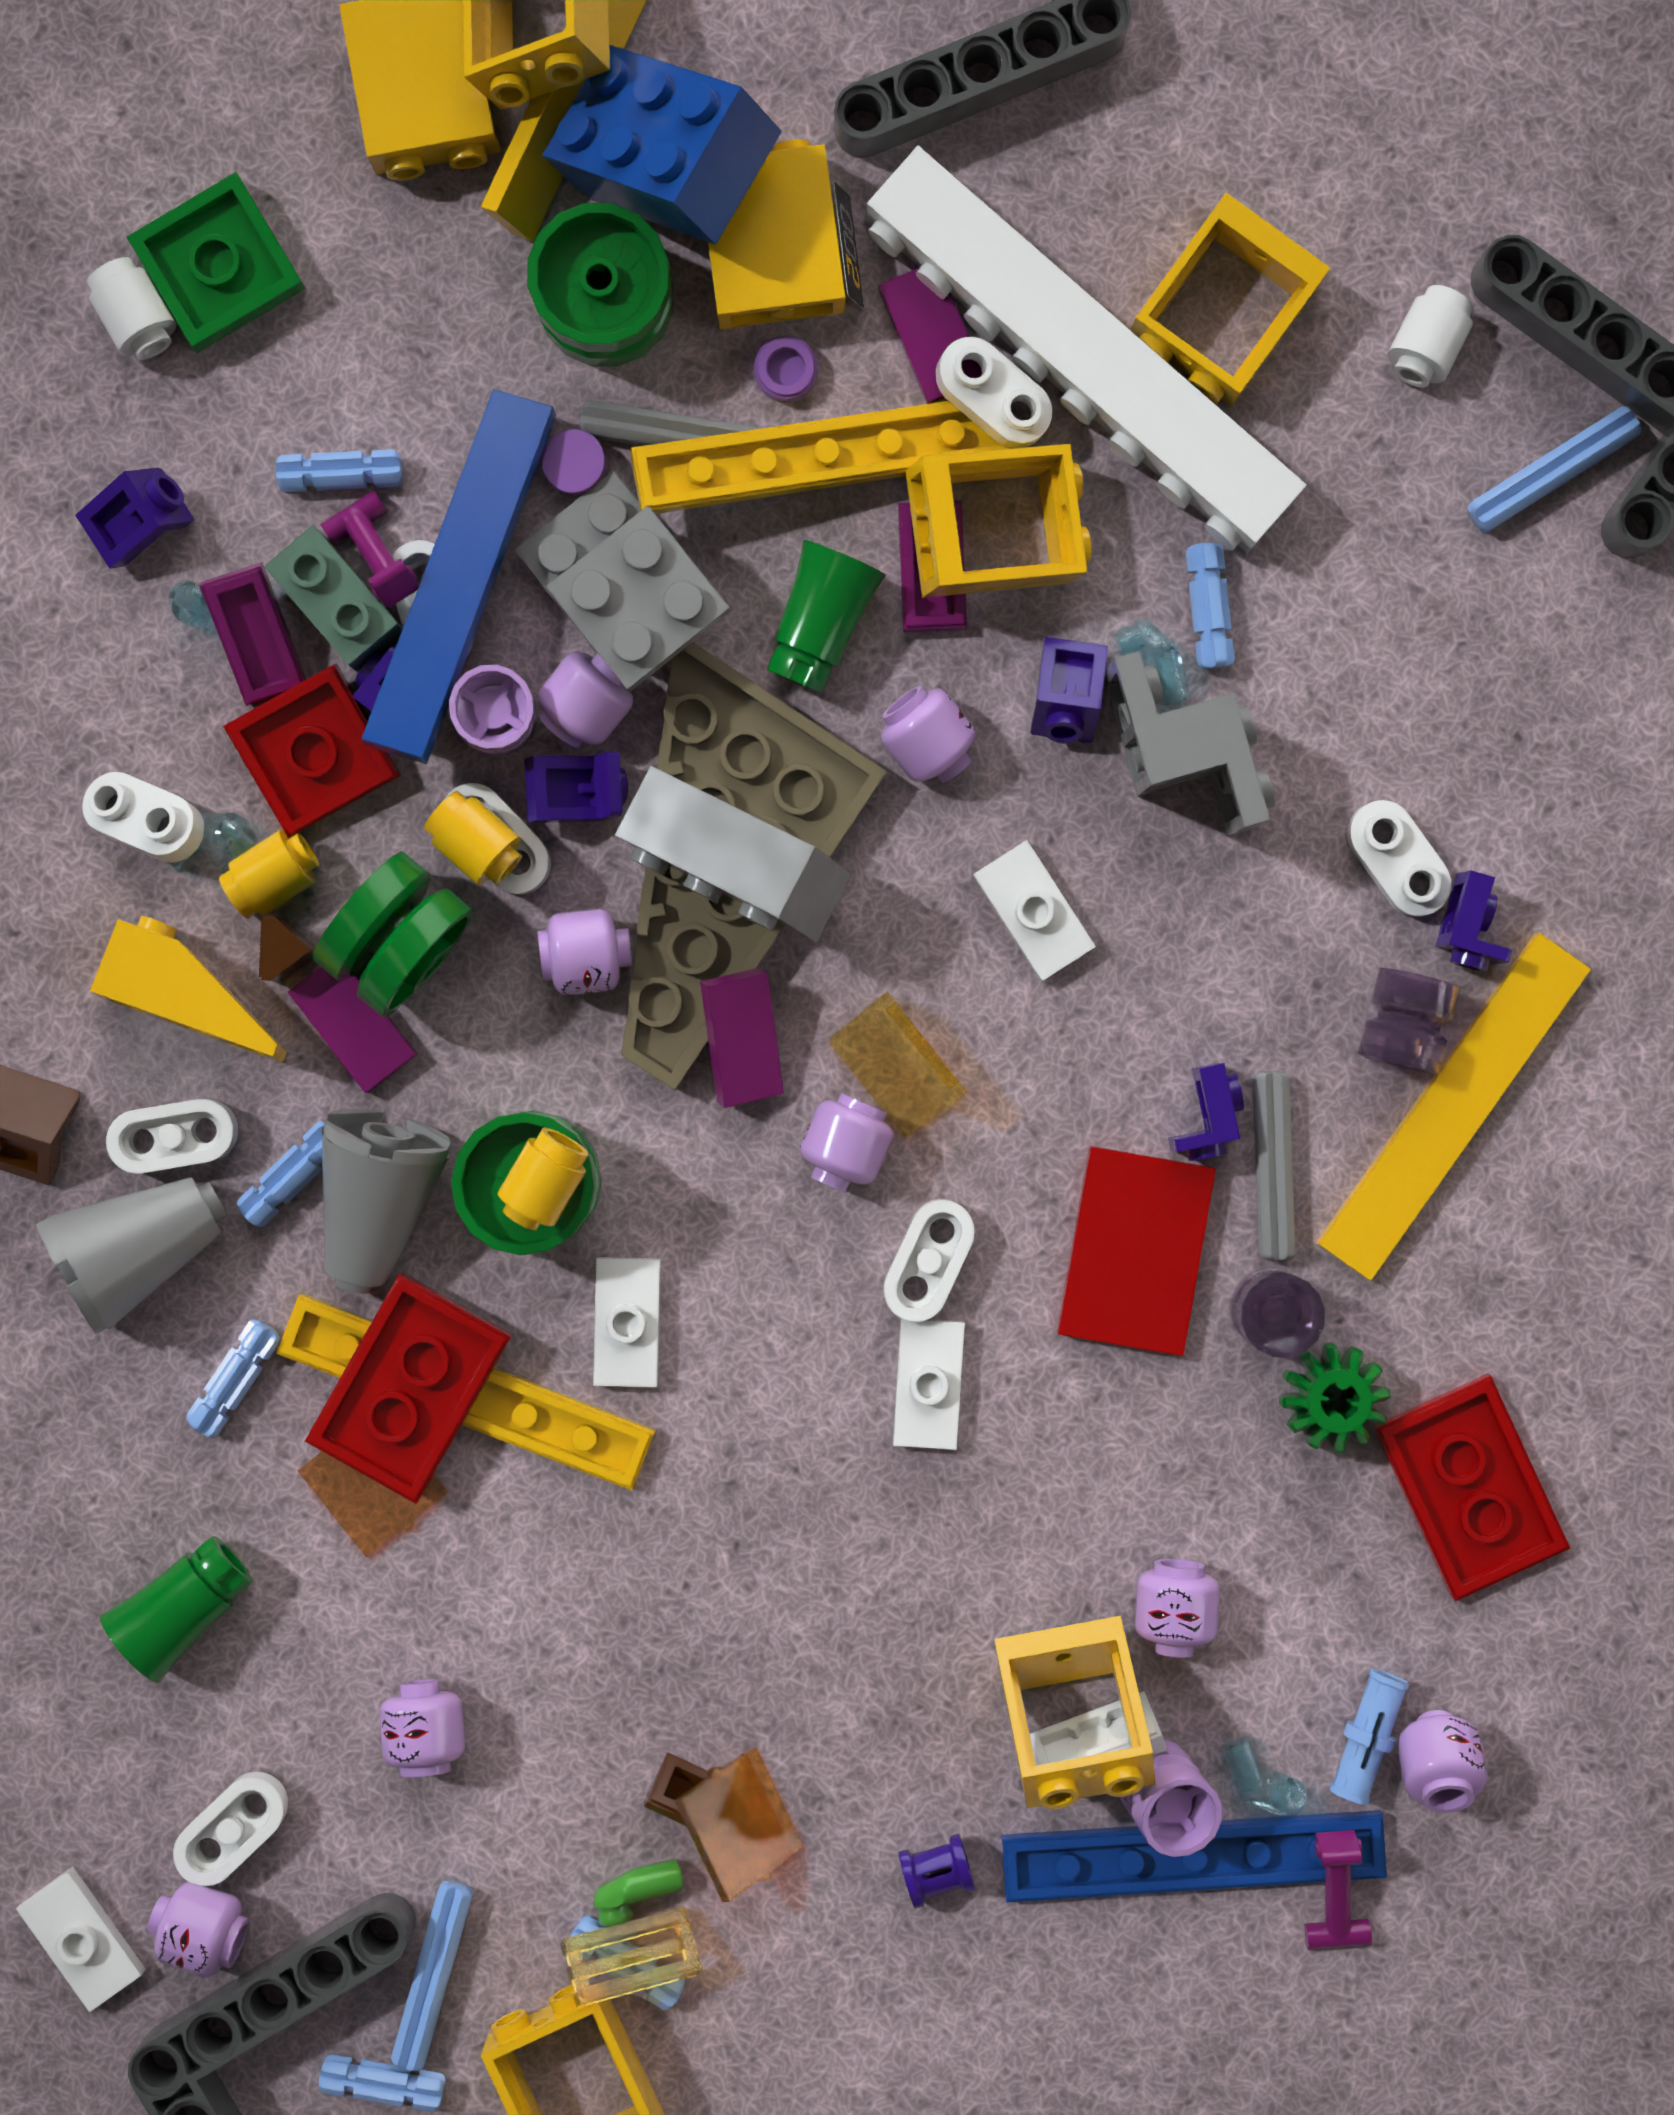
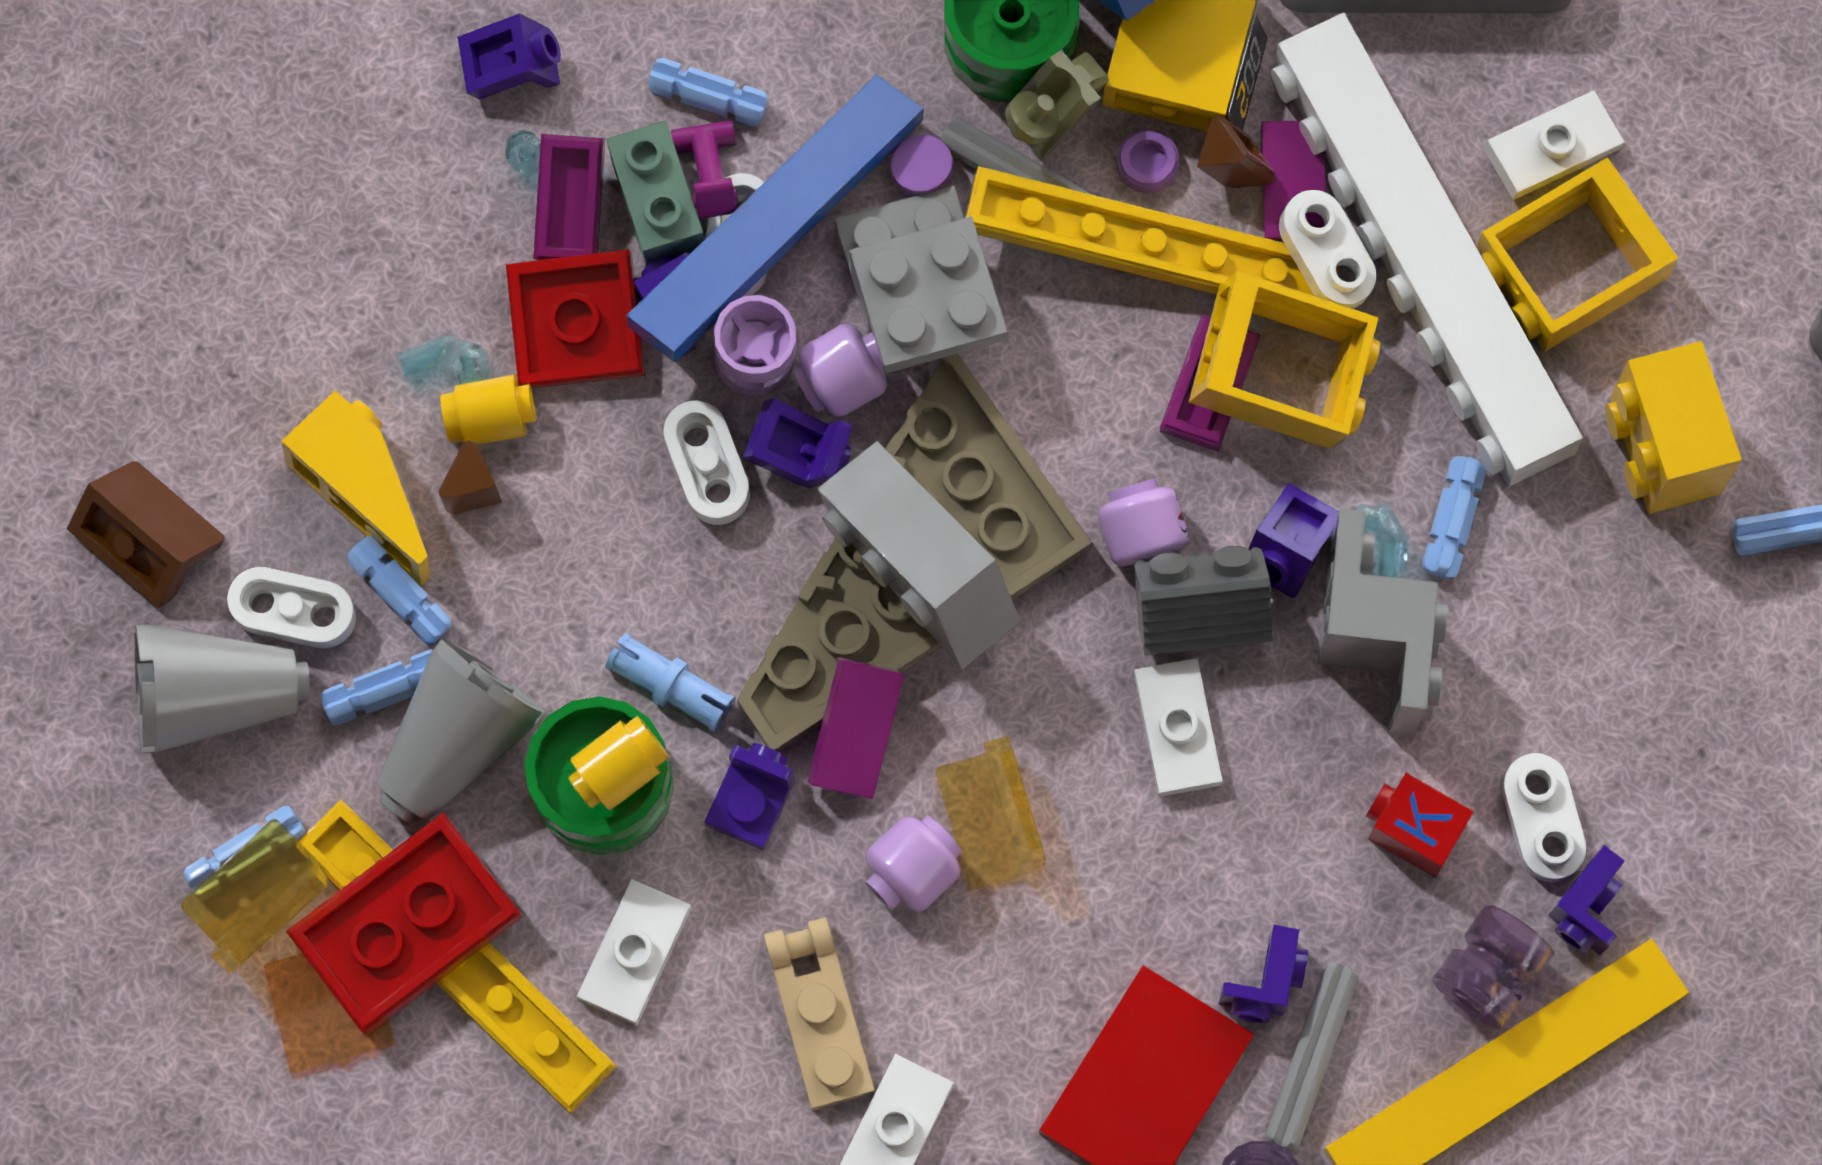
camera: 30 degrees right, 15 degrees down
(138, 815) = (392, 312): white plate -> none
(176, 1608) = (95, 1040): green plant -> none
(263, 1418) = (255, 894): none -> clear yellow panel
(264, 1078) = (399, 590): none -> light blue axle
(360, 1038) = (502, 575): magenta tile -> none
(392, 934) = (577, 501): green wheel -> none
(473, 839) = (687, 447): yellow brick -> none
(552, 1061) = (670, 682): none -> light blue pin
(583, 951) = (742, 591): lavender head -> none
(672, 1137) = (751, 795): none -> dark purple bracket
(677, 350) = (1055, 101): none -> olive hips
(818, 1311) = (820, 1017): none -> tan plate
(821, 614) = (1090, 380): green plant -> none
(867, 333) = (1233, 157): none -> reddish brown slope
(928, 1259) = (943, 1009): white plate -> none
(1014, 786) = (1203, 600): none -> dark grey brick
(1164, 195) = (1553, 145): none -> white plate
(1290, 914) = (1417, 823): none -> red brick
(1387, 440) = (1672, 428): none -> yellow brick
(1431, 336) = (1754, 358): white brick -> none

